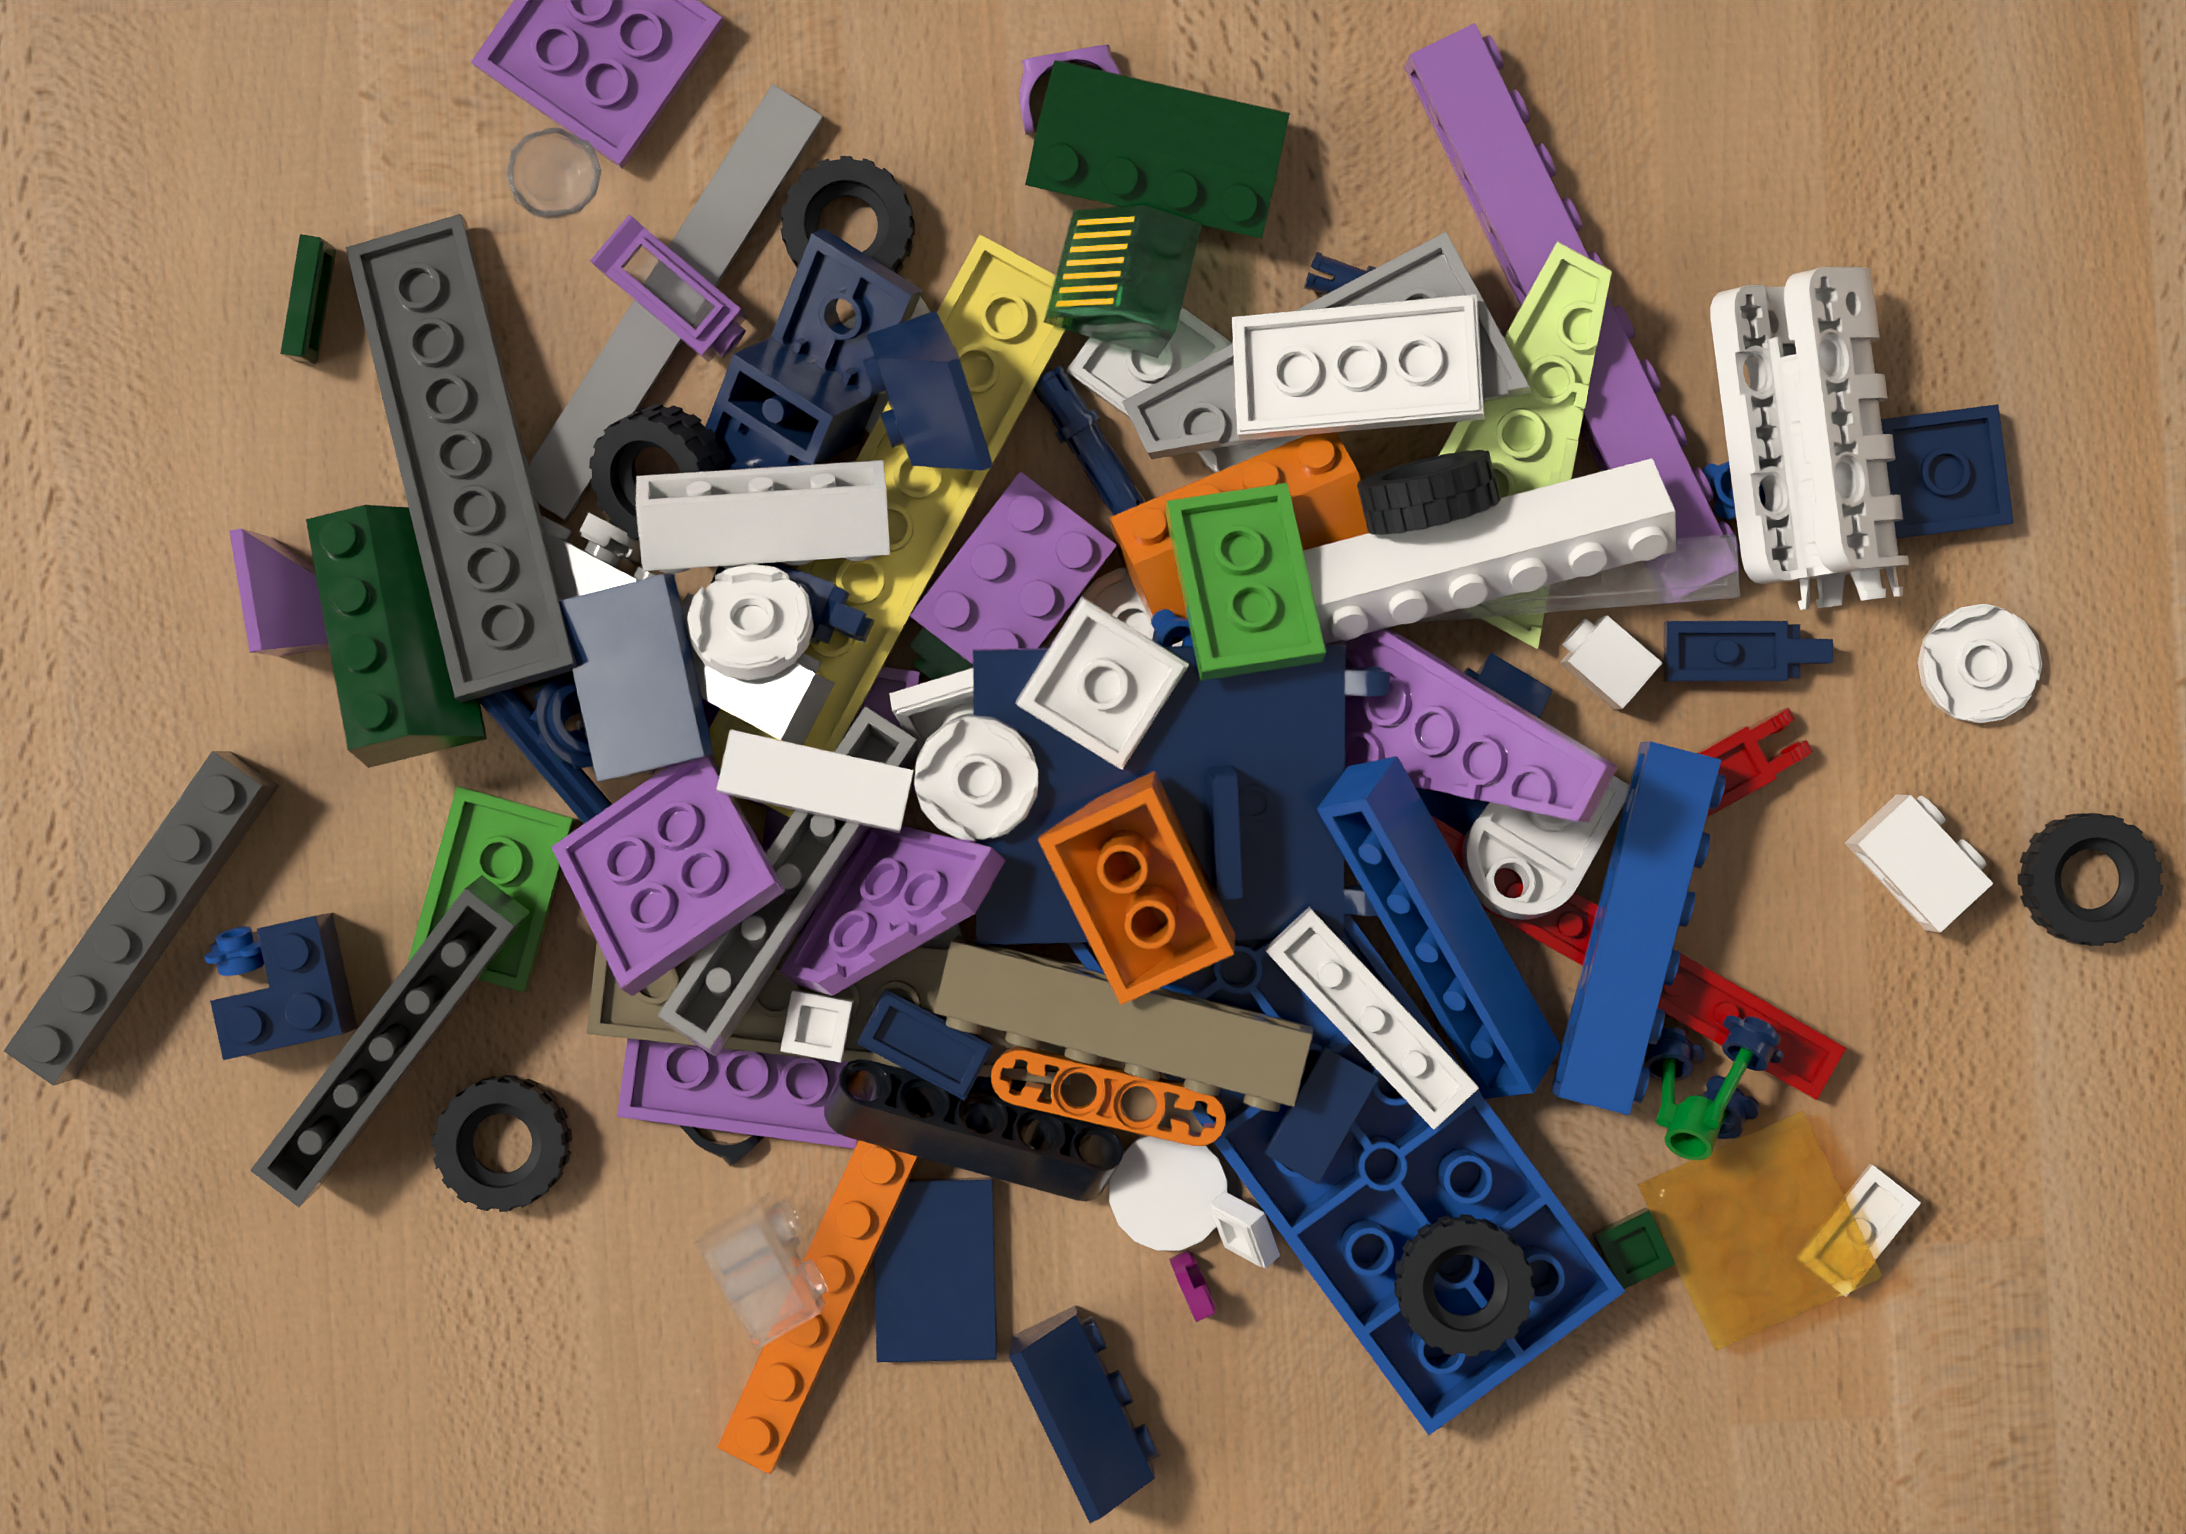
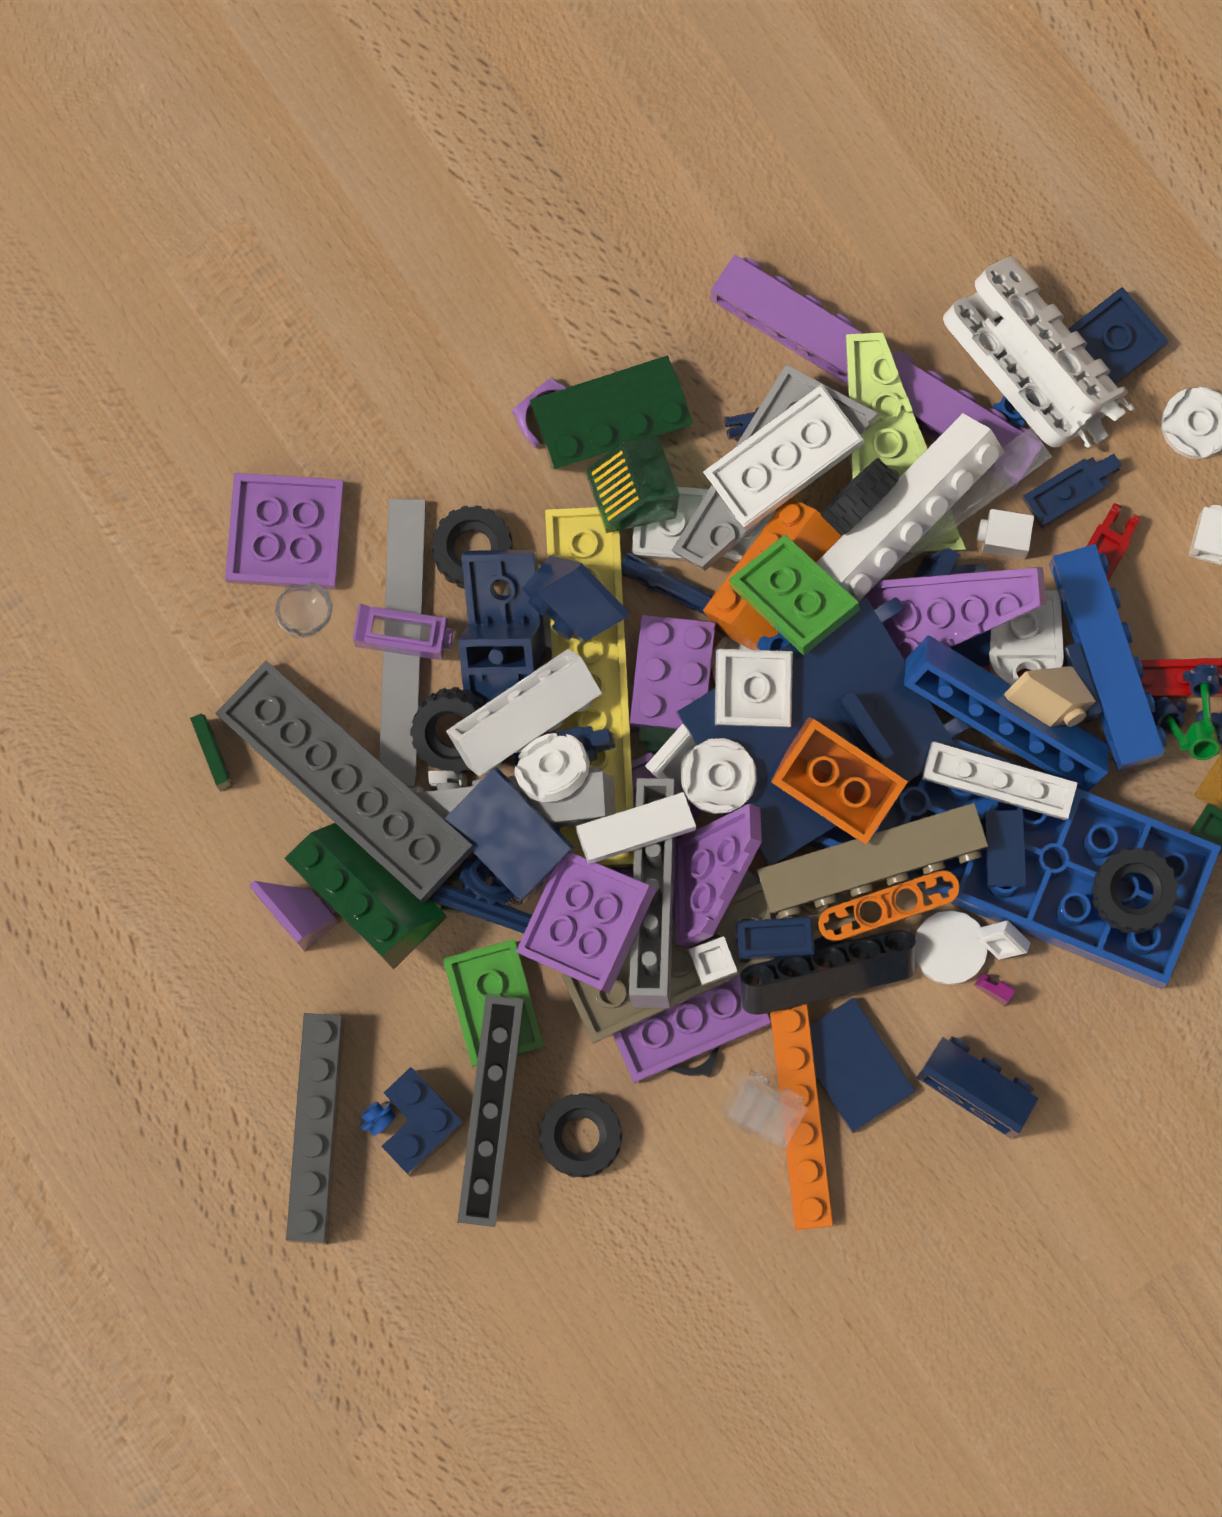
camera: 35 degrees left, 10 degrees down
(1476, 652) = (937, 563): none -> dark blue tile
(1522, 944) = (1052, 696): none -> tan slope
(1580, 942) = (1075, 657): none -> dark blue tile

